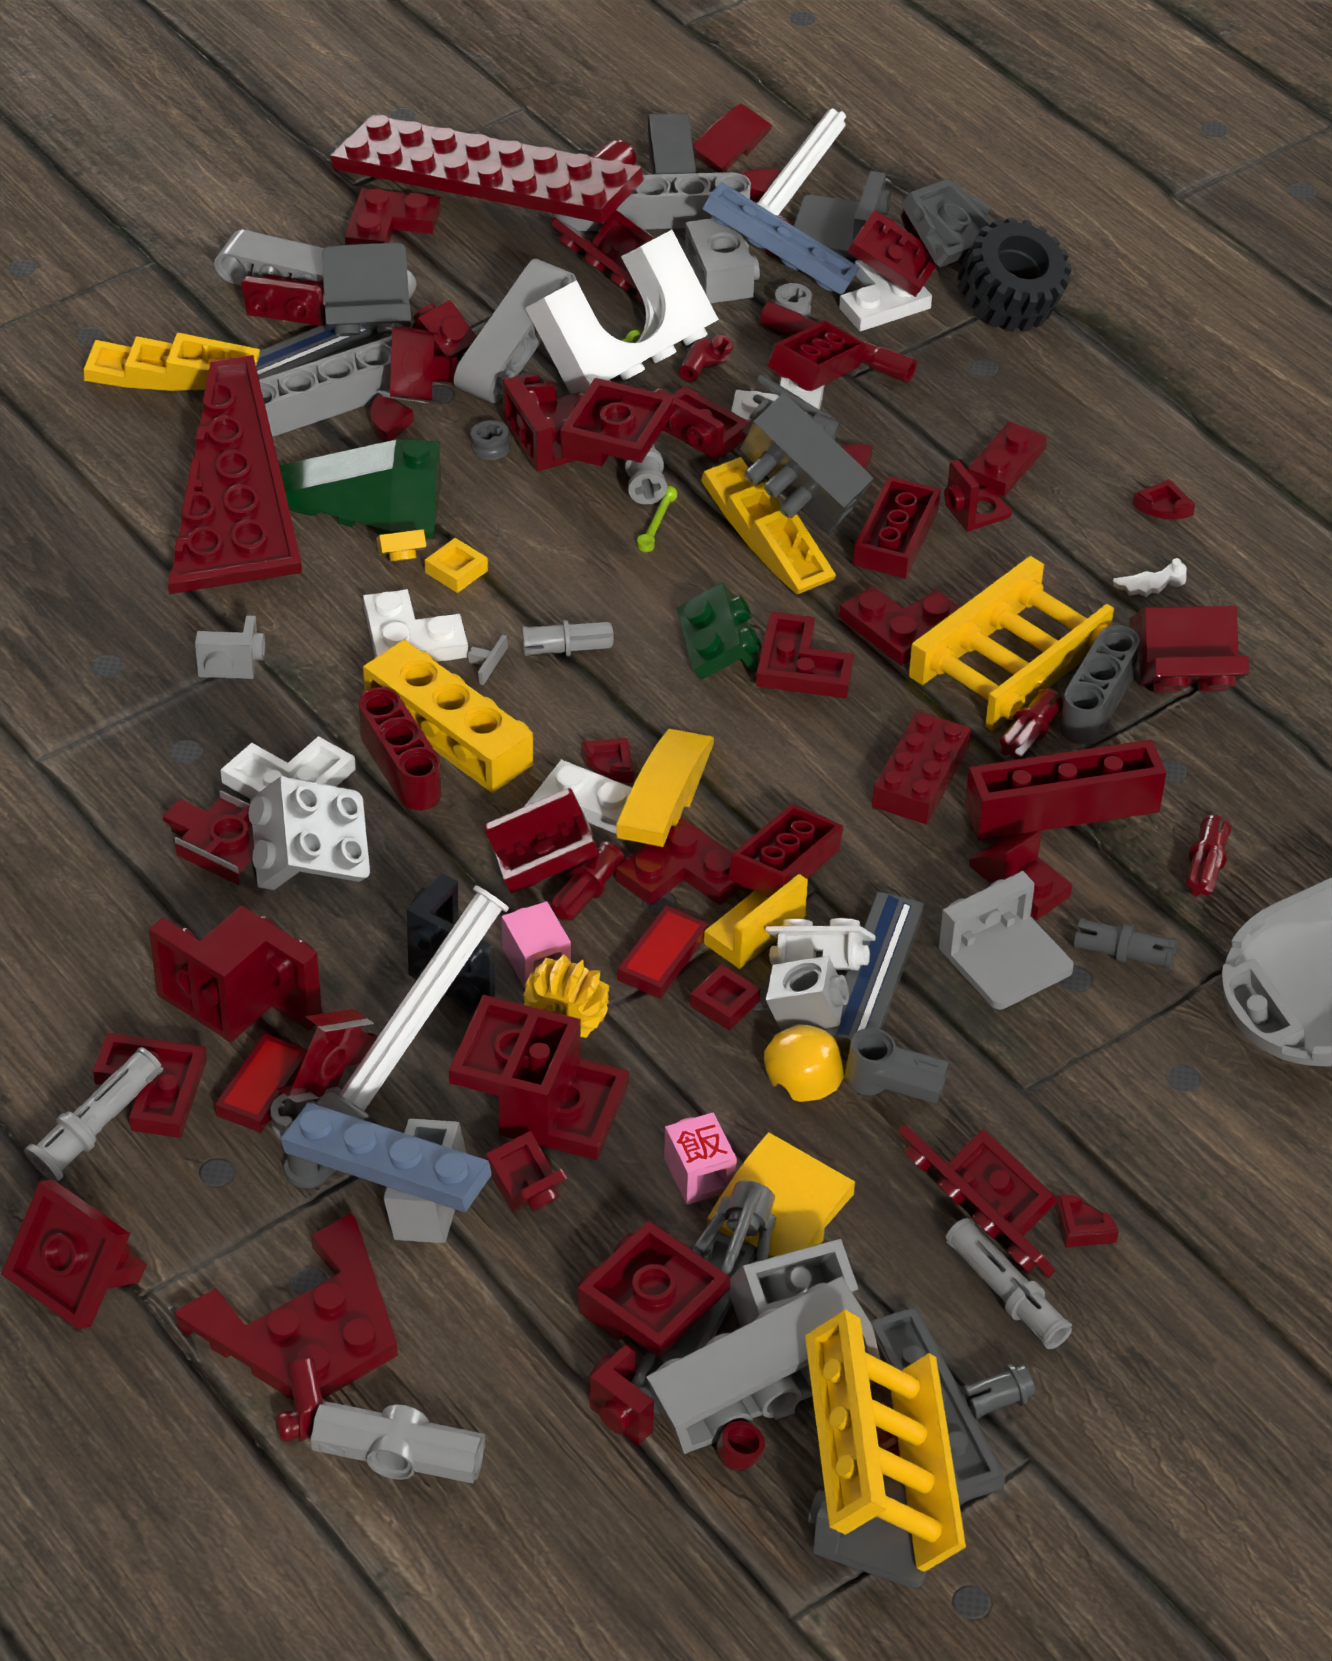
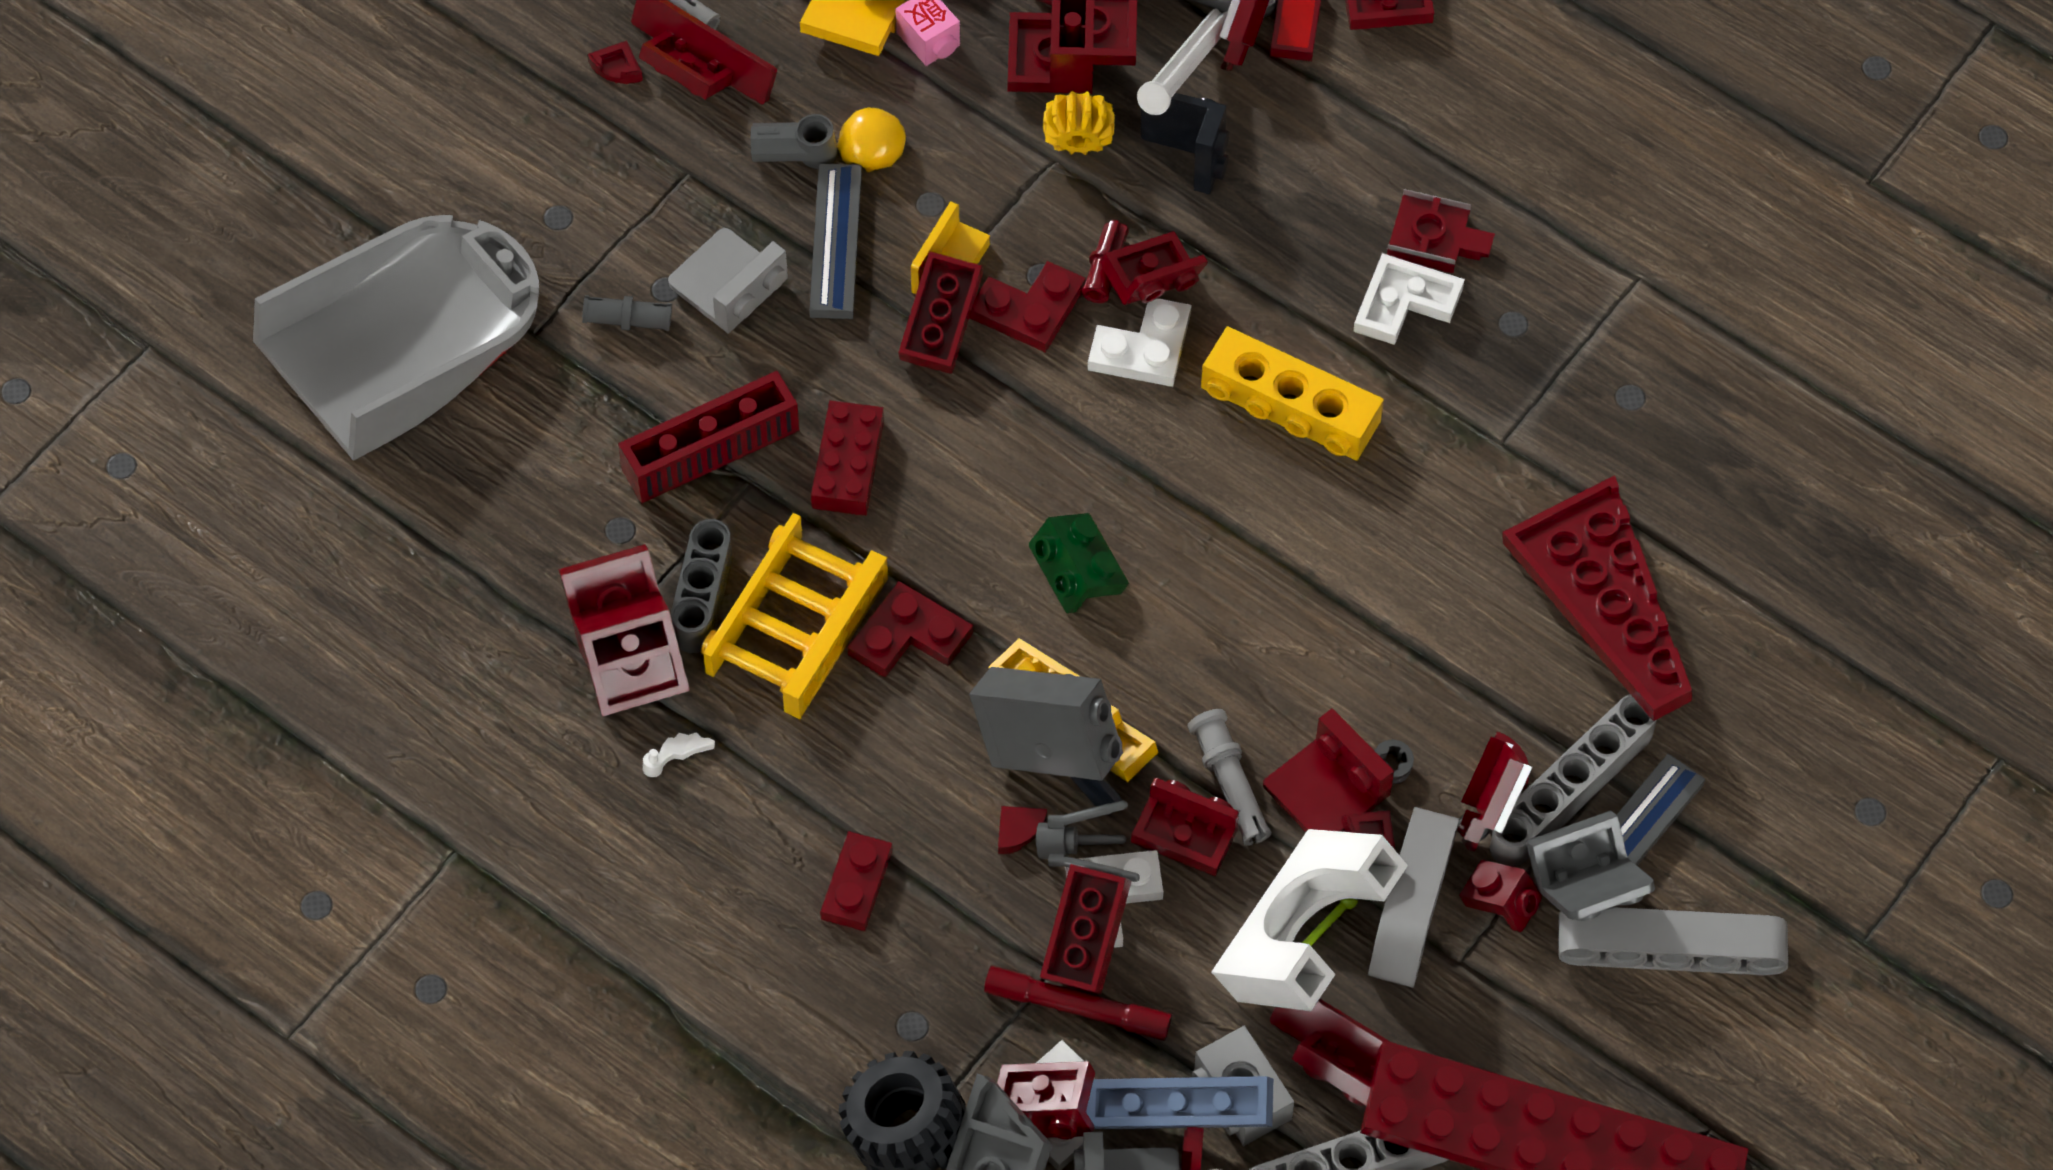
camera: 165 degrees right, 15 degrees up
(159, 363) = (1749, 762): yellow slope -> none
(230, 652) = (1518, 409): light grey bracket -> none
(236, 973) = (1357, 59): dark red bracket -> none
(285, 299) = (1683, 879): dark red bracket -> none
(308, 831) = (1352, 222): light grey bracket -> none
(376, 485) = (1479, 655): dark green wedge -> none
(383, 211) = (1652, 1076): dark red plate -> none
(393, 620) = (1371, 486): white plate -> none
(400, 748) = (1316, 328): dark red beam -> none
(401, 545) = (1420, 585): yellow plate -> none
(456, 565) = (1359, 588): yellow tile -> none
(487, 658) = (1287, 487): light grey piece -> none
(532, 936) = (1125, 181): bright pink brick -> none
(567, 638) = (1219, 520): light grey axle -> none
(609, 759) = (1132, 402): dark red tile -> none
(614, 422) = (1262, 759): dark red plate -> none
(646, 541) = (1188, 674): lime hinge -> none
(662, 952) = (1019, 216): tile -> none
(664, 787) = (1069, 363): yellow slope -> none
(705, 354) = (1212, 947): dark red arm -> none
(725, 997) = (952, 176): dark red plate -> none
(792, 664) = (994, 537): dark red plate -> none
(794, 297) = (1137, 1068): light grey bush -> none
(807, 993) = (883, 177): light grey brick -> none
(840, 941) = (883, 237): white hinge -> none
(896, 527) = (942, 739): dark red piece -> none
(962, 498) = (884, 789): dark red bracket -> none
(1018, 854) = (728, 364): dark red slope -> none
(1030, 723) = (757, 528): dark red axle -> none
(1164, 501) = (681, 865): dark red tile -> none
(1207, 855) = (570, 423): dark red axle -> none

